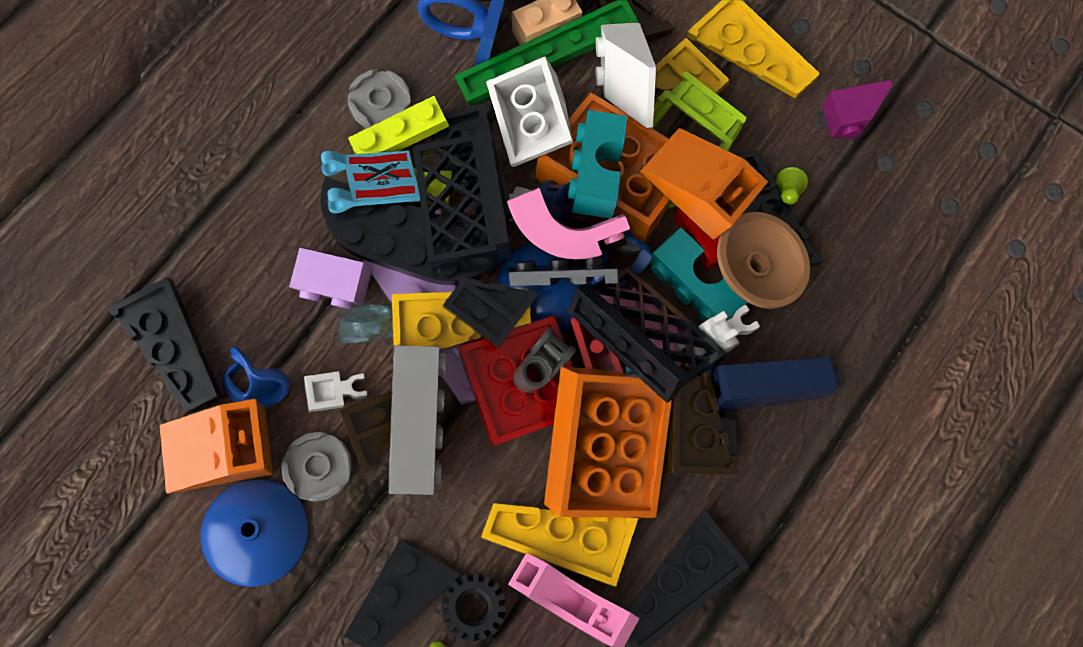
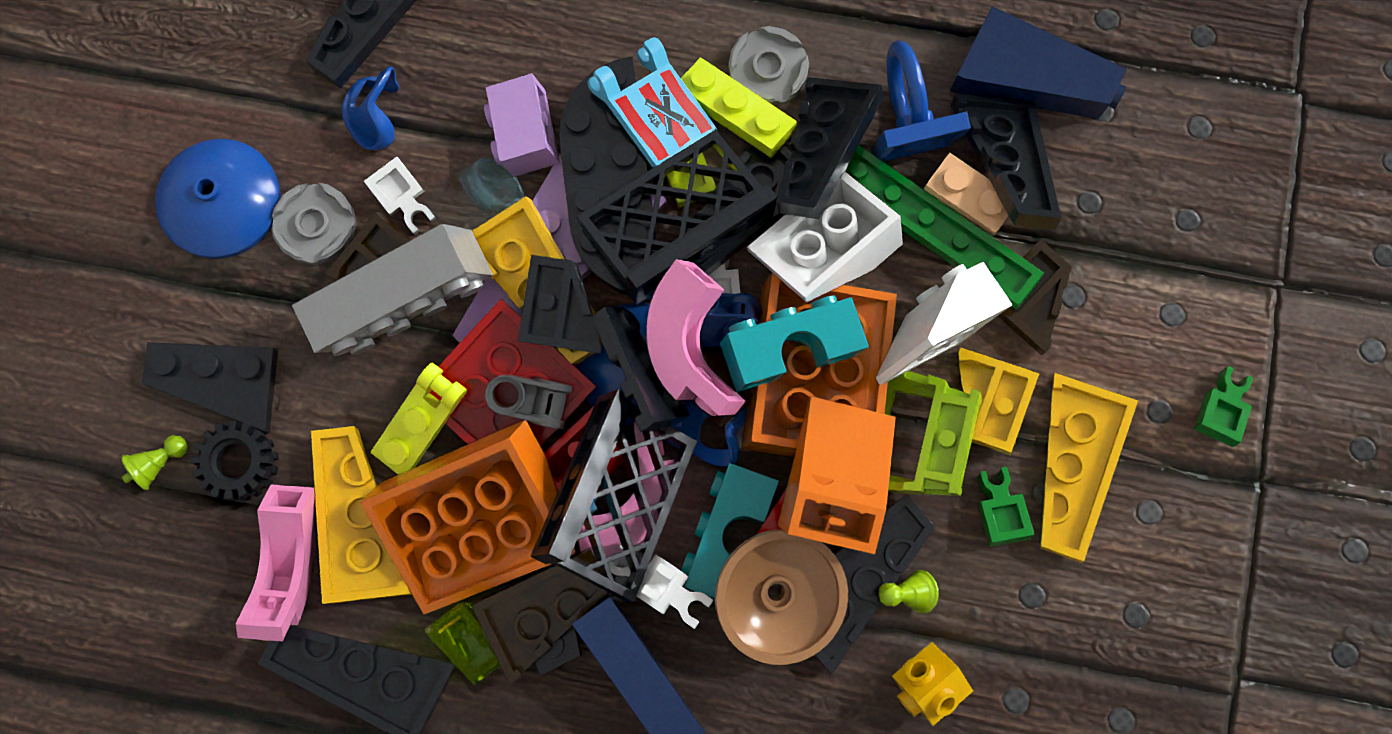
camera: 70 degrees right, 5 degrees up
(216, 446) = (283, 113): slope -> none
(461, 81) = (826, 139): none -> black wing
(516, 451) = (418, 420): none -> neon yellow plate
(690, 493) = (464, 642): none -> clear neon green slope
(766, 106) = (1003, 516): none -> green plate
(853, 108) = (1061, 627): magenta slope -> none
(858, 201) = (931, 684): none -> yellow brick

